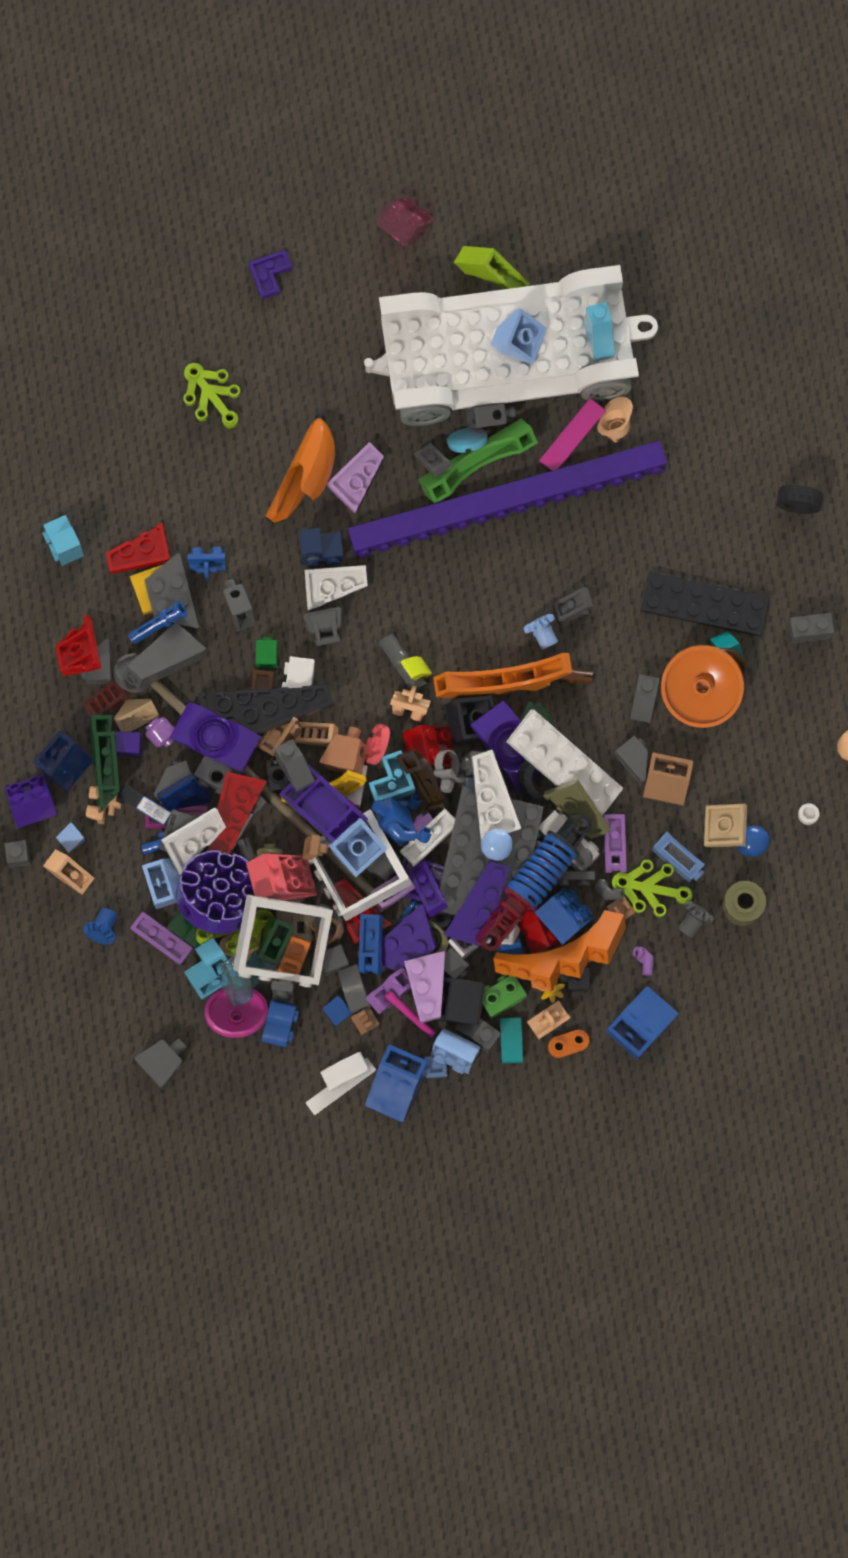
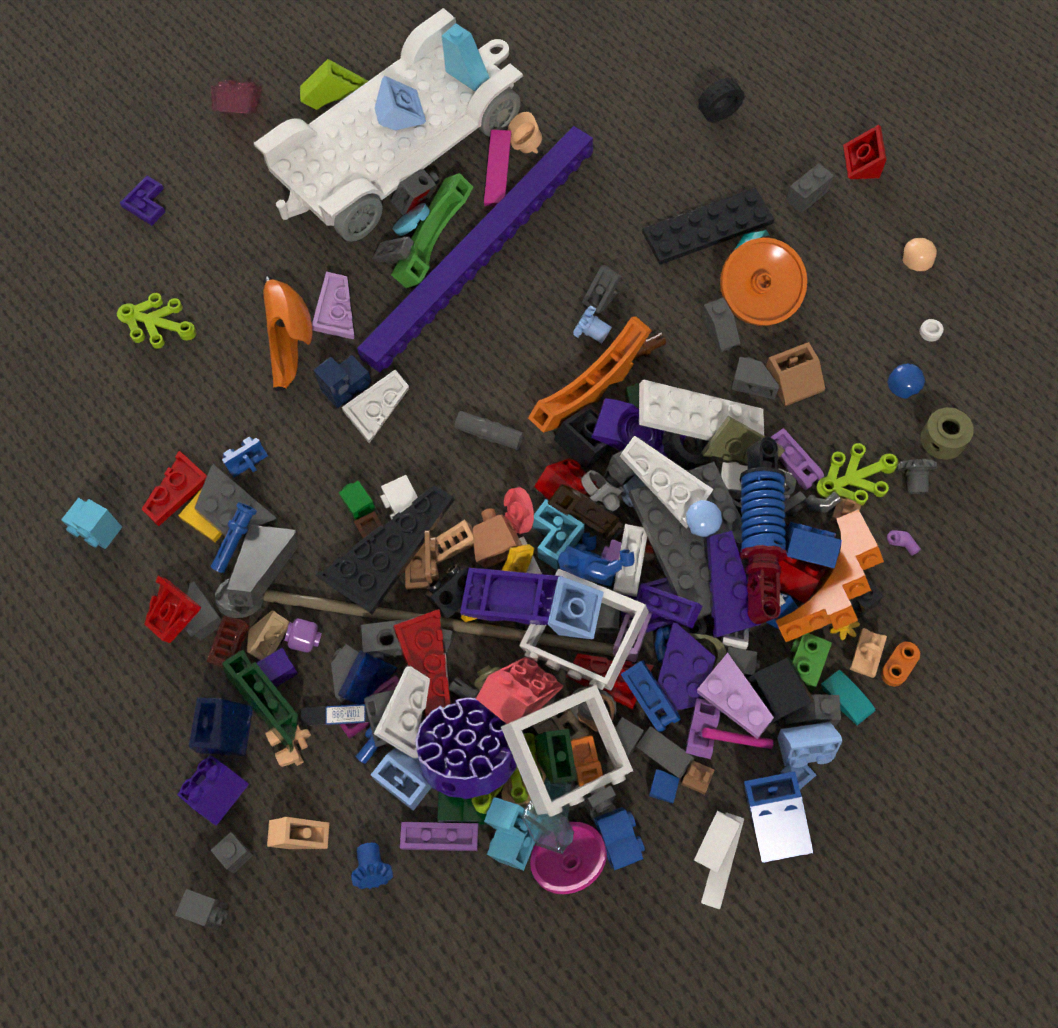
camera: 30 degrees left, 10 degrees down
(70, 838) = (278, 798): light blue slope -> none
(162, 1061) = (527, 966): dark grey torso -> none
(215, 737) = (360, 602): dark purple slope -> none
(238, 605) = (296, 469): dark grey torso -> none
(294, 765) = (456, 574): dark grey slope -> none
(313, 847) = (530, 639): medium nougat tile -> none
(324, 622) = (390, 441): dark grey piece -> none
(411, 701) = (531, 456): light nougat hips -> none
(416, 668) = (504, 424): neon yellow slope -> none
(641, 1023) = (951, 599): blue slope -> none
(679, 857) = (851, 431): medium blue window -> none
(725, 825) = (875, 381): tan tile -> none

